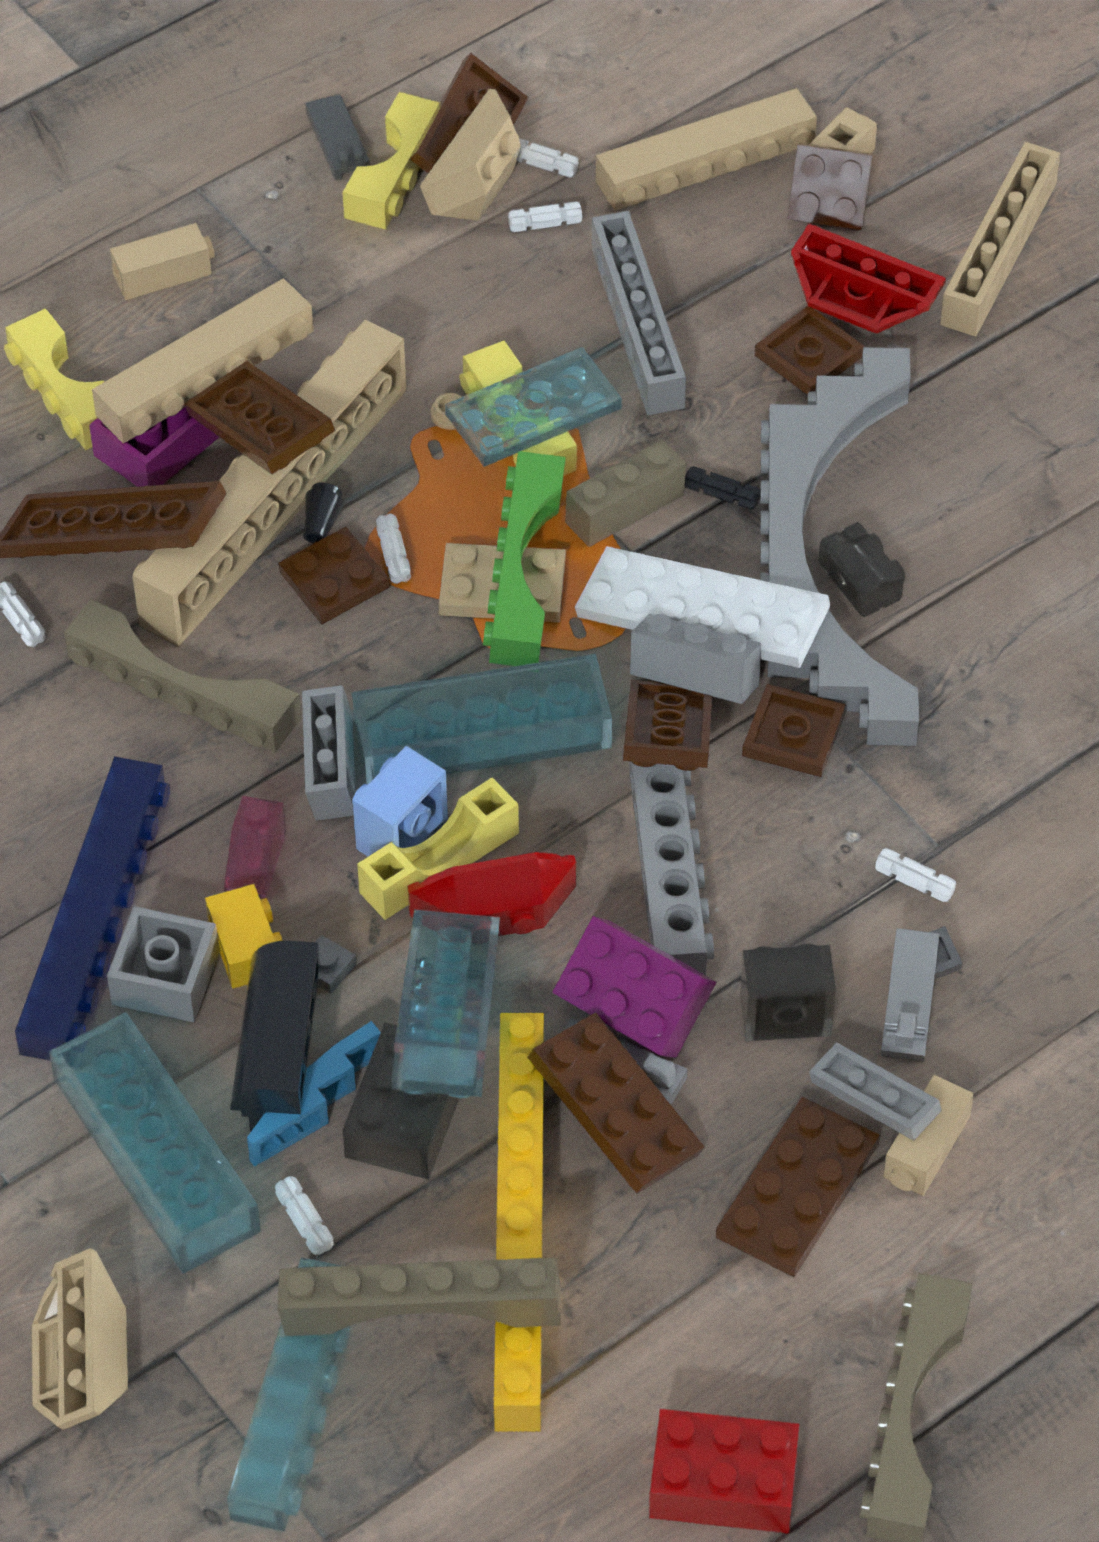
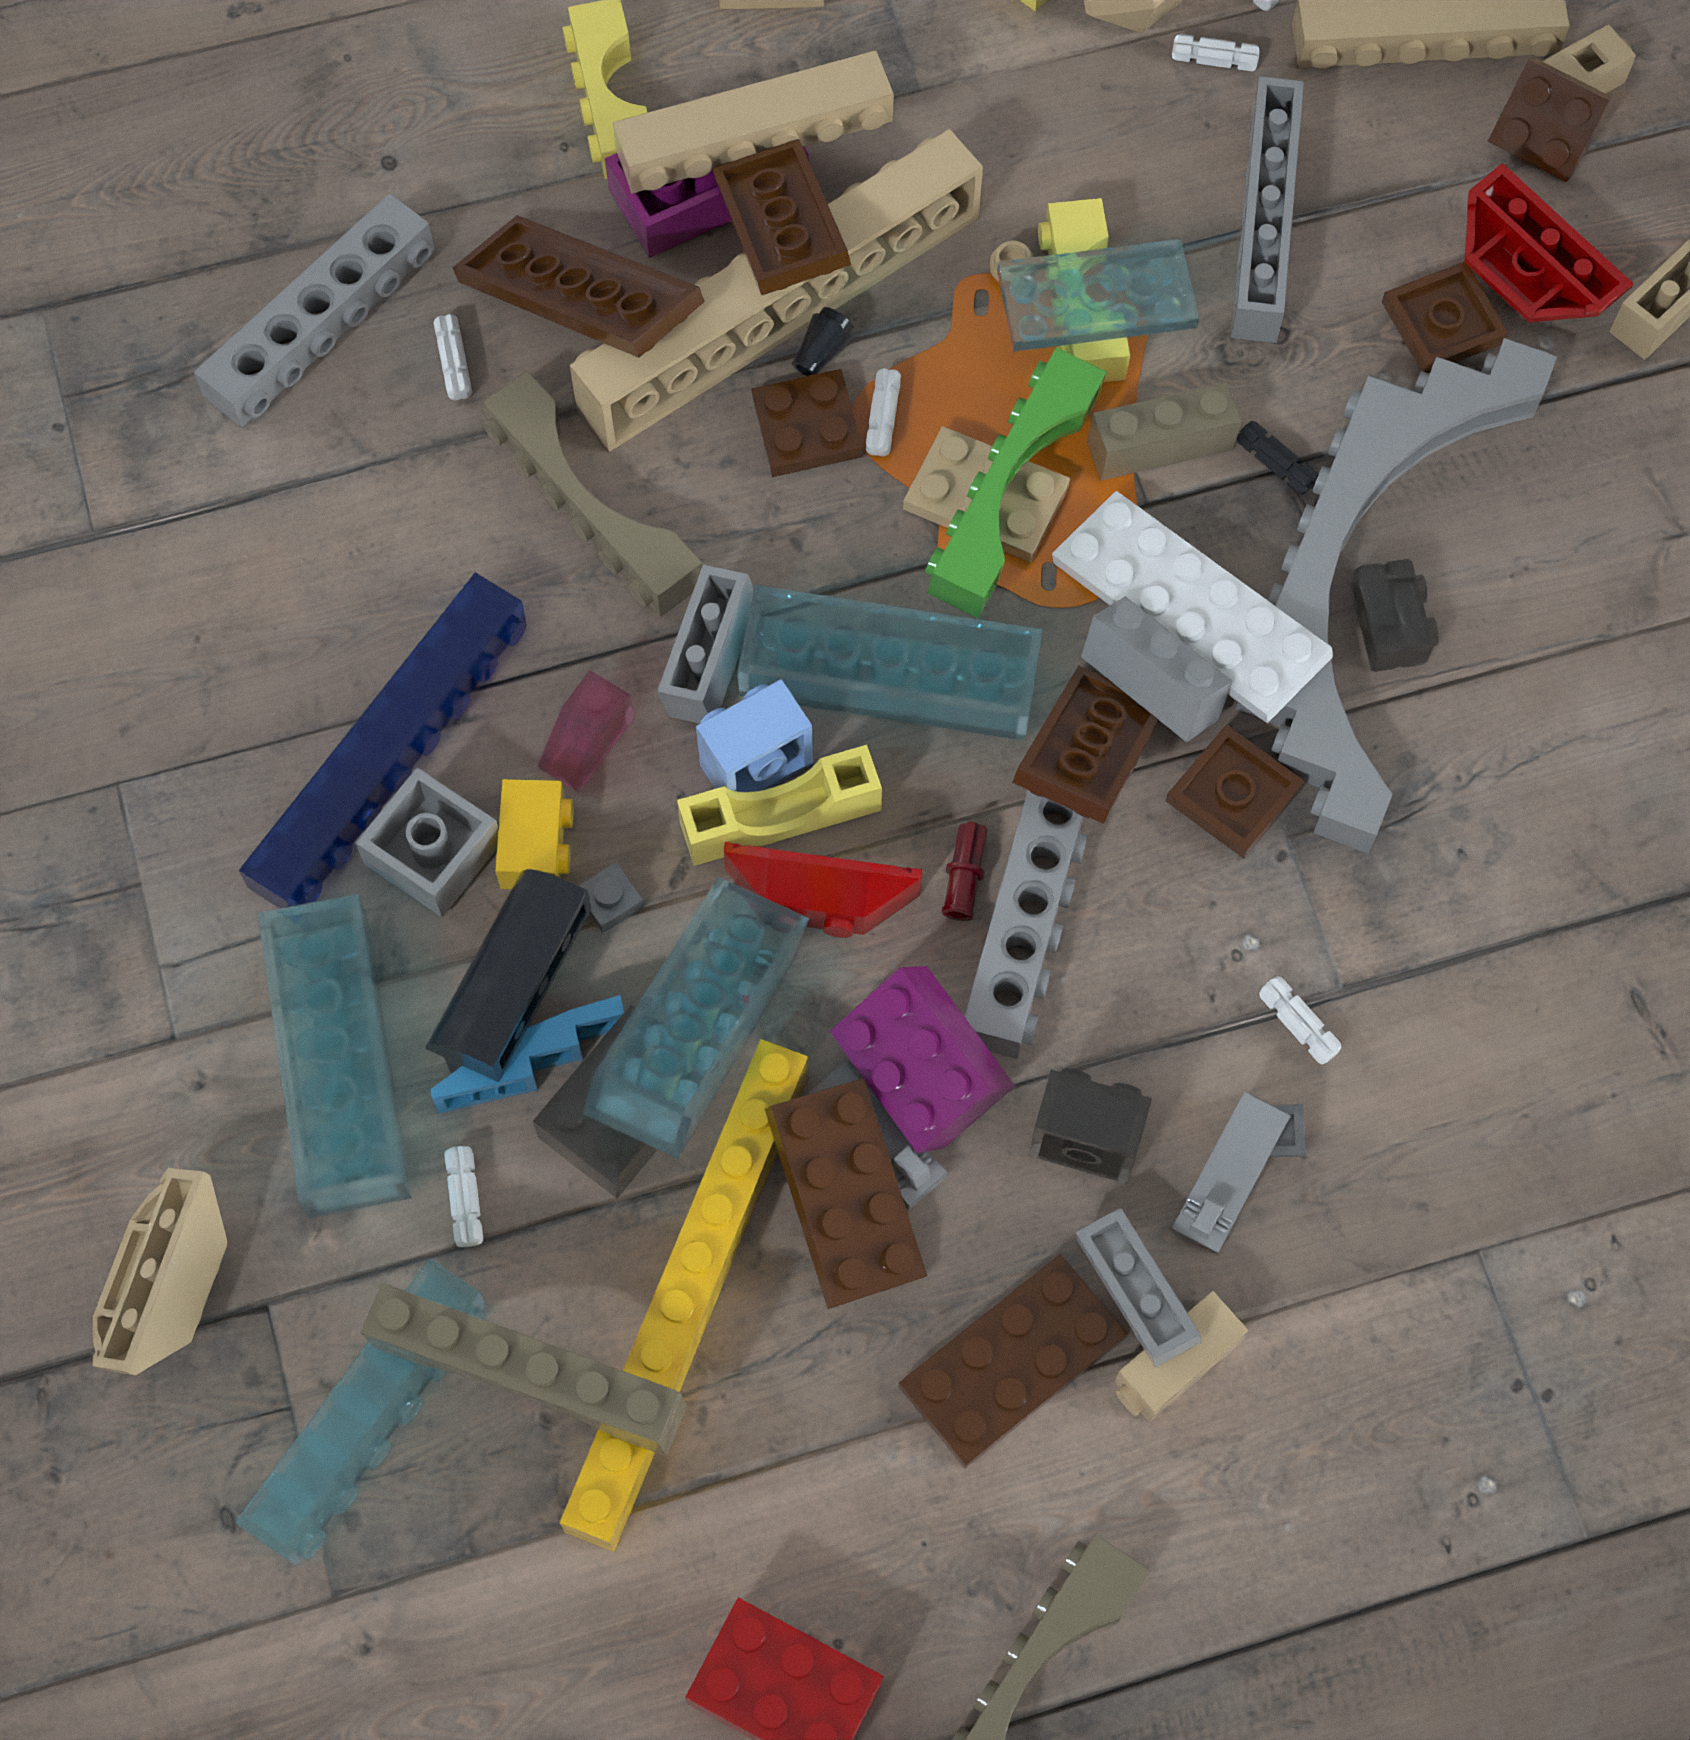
camera: 20 degrees right, 15 degrees up
(606, 854) = (965, 872): none -> dark red axle

